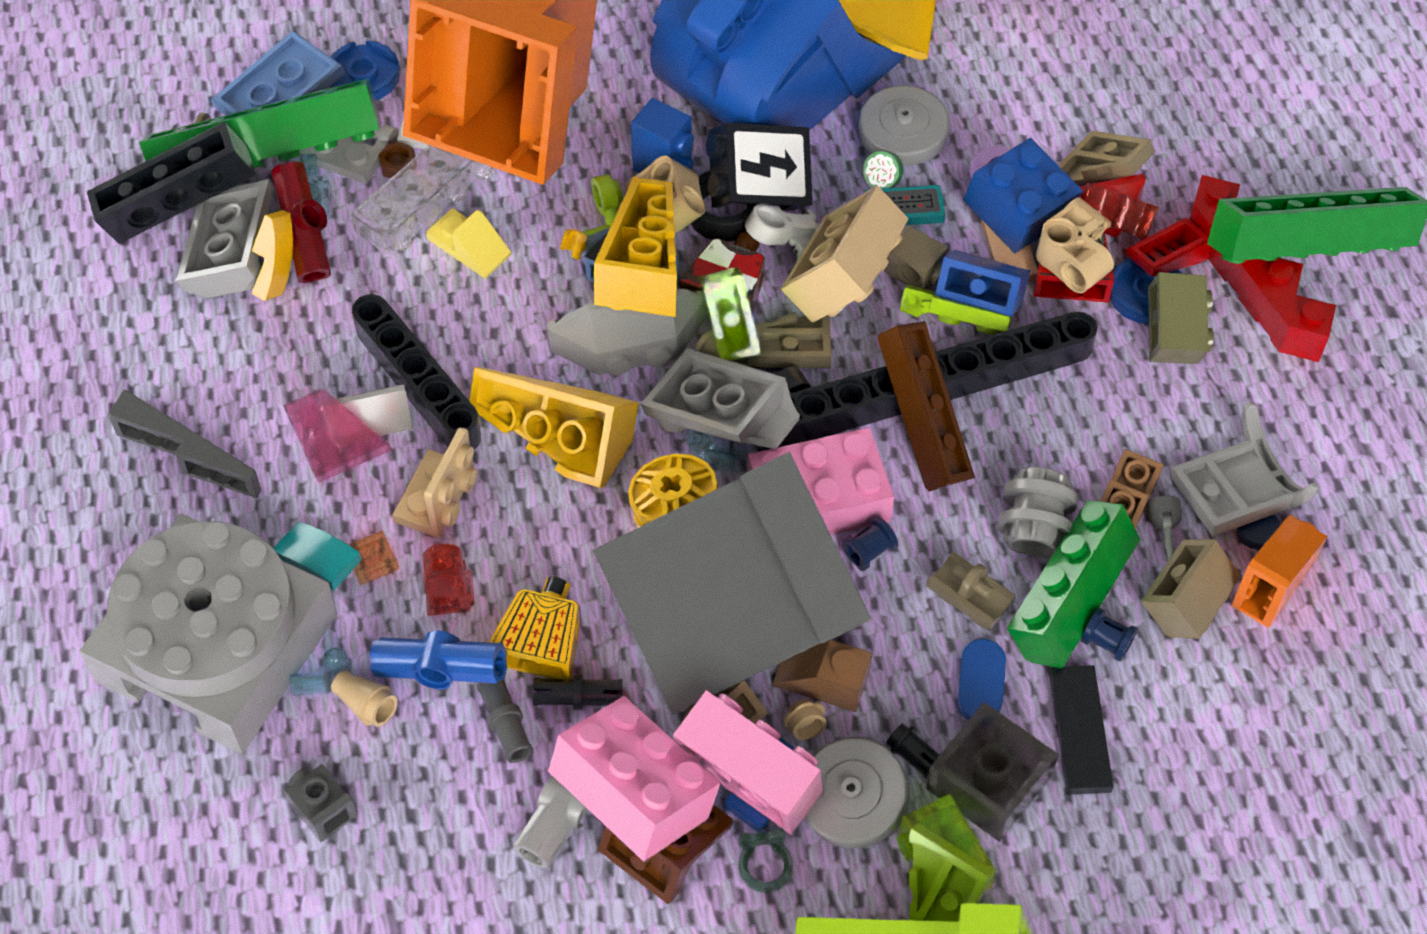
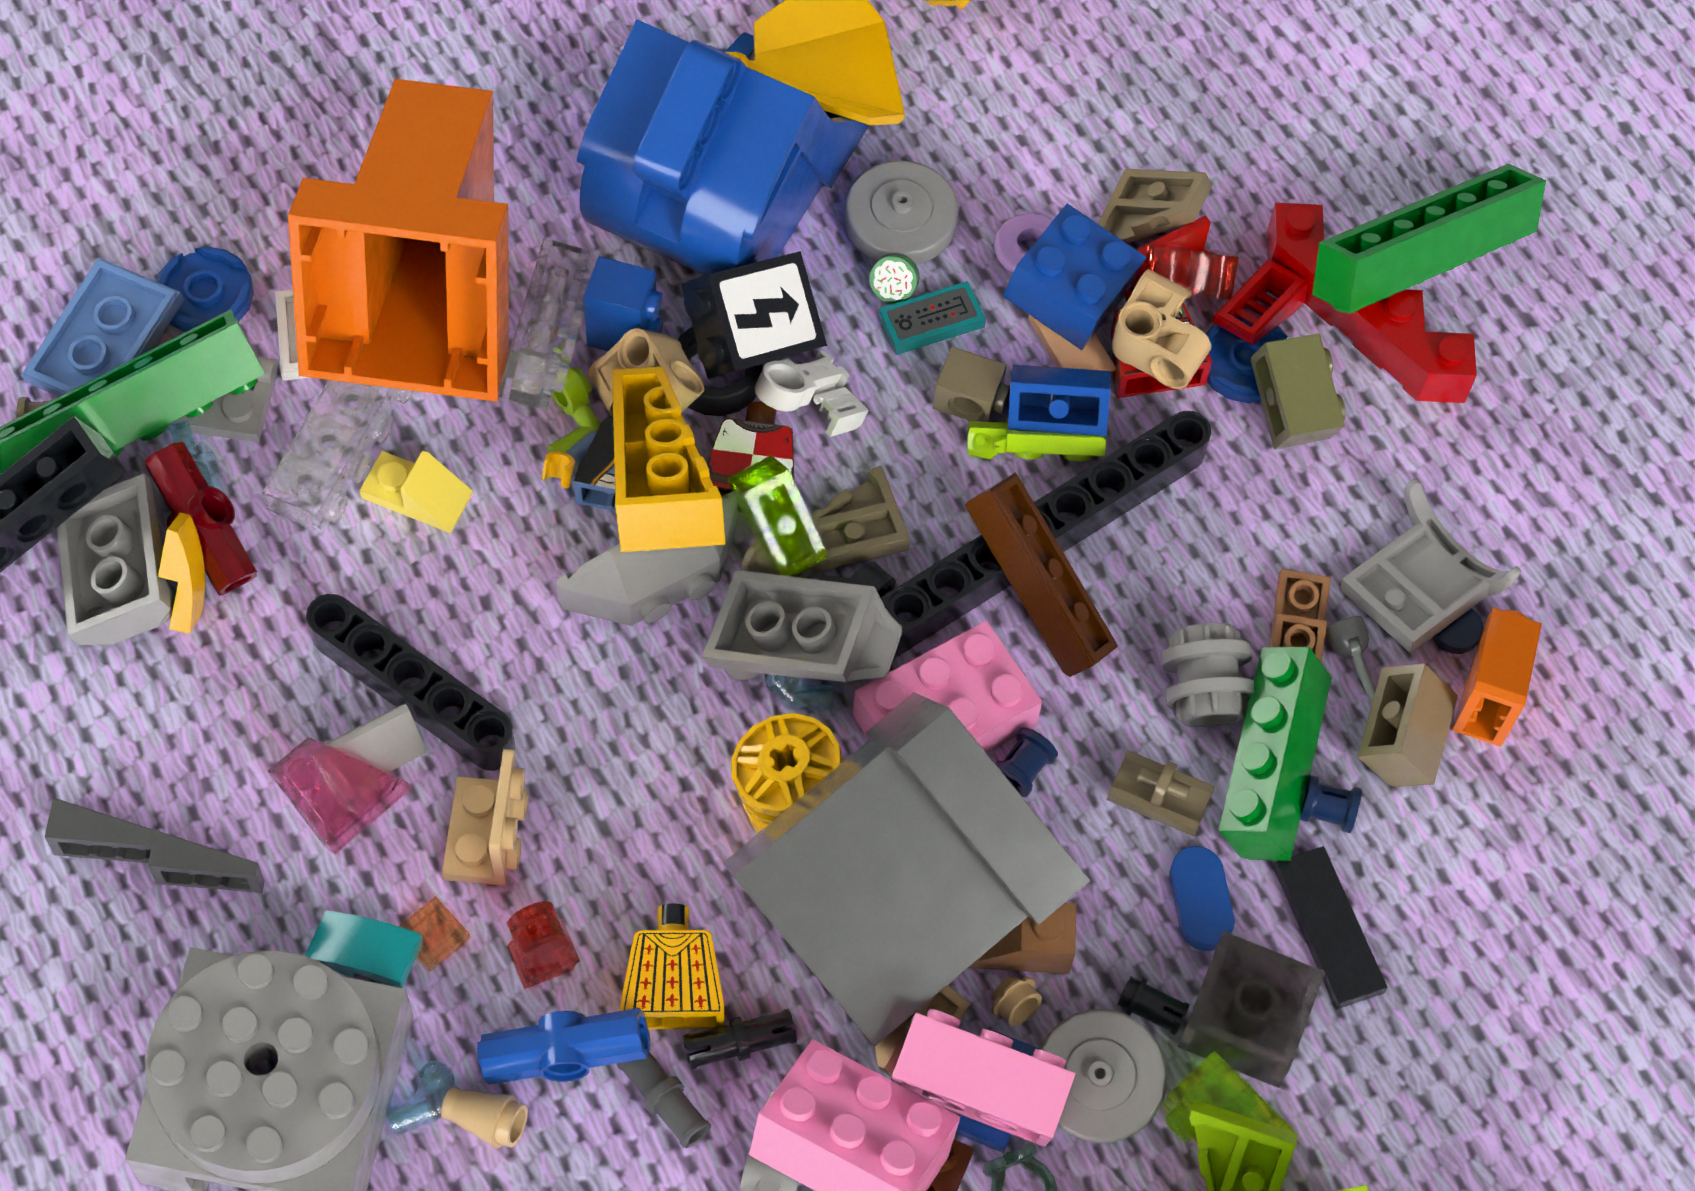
camera: 20 degrees left, 5 degrees up
(394, 158) = (290, 403): reddish brown tile -> none
(570, 424) = (623, 700): yellow wedge -> none
(595, 141) = (547, 326): none -> clear brick
(845, 255) = (891, 405): tan brick -> none

